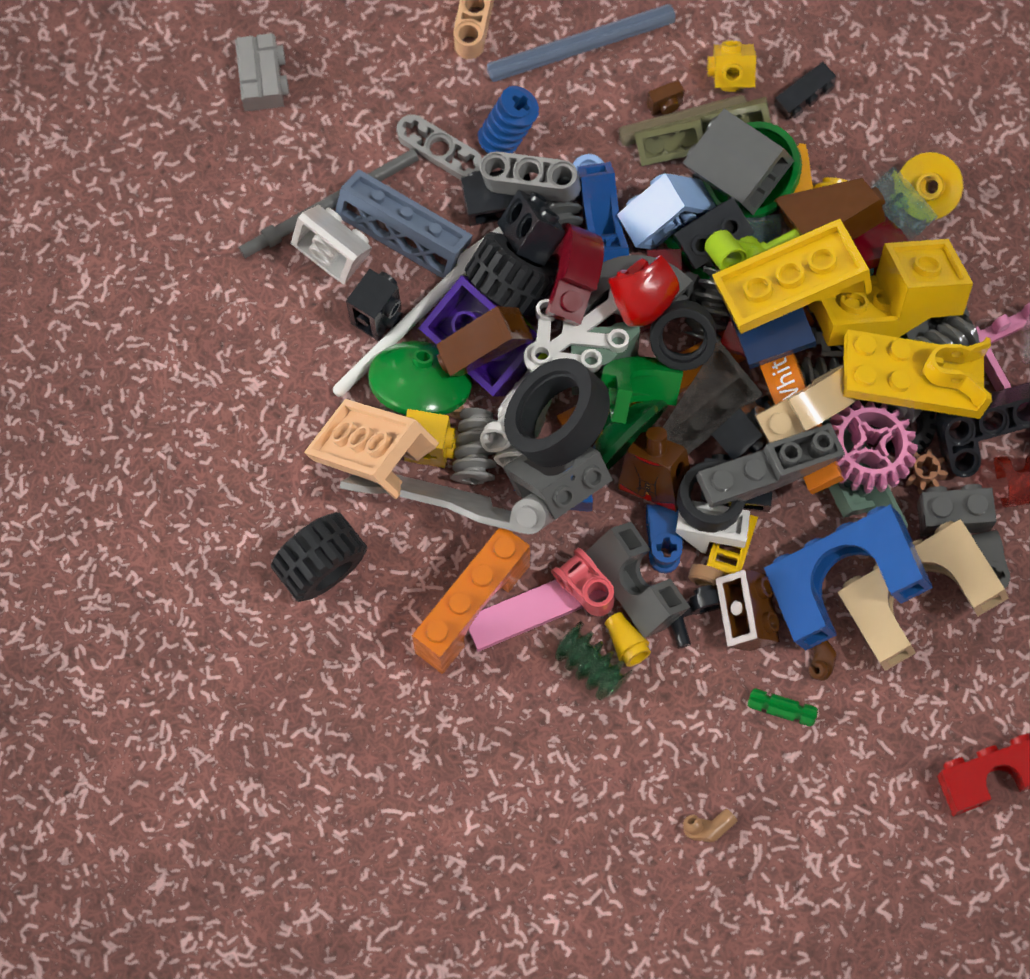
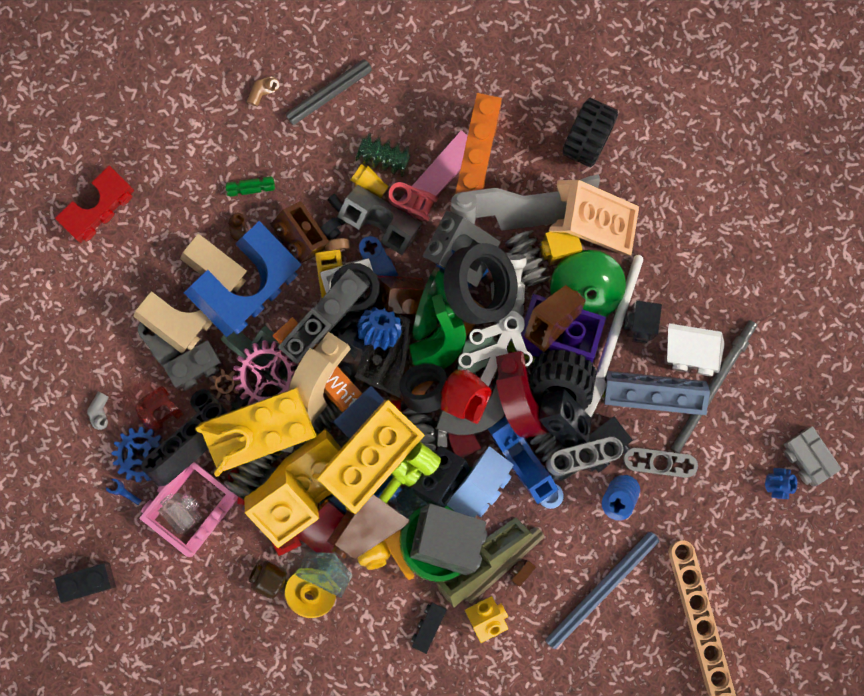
camera: 150 degrees right, 10 degrees up
(312, 59) = (781, 483): none -> blue gear
(623, 782) = (328, 92): none -> dark grey axle
(717, 424) = (379, 328): none -> blue gear
(973, 224) = (268, 579): none -> dark brown head

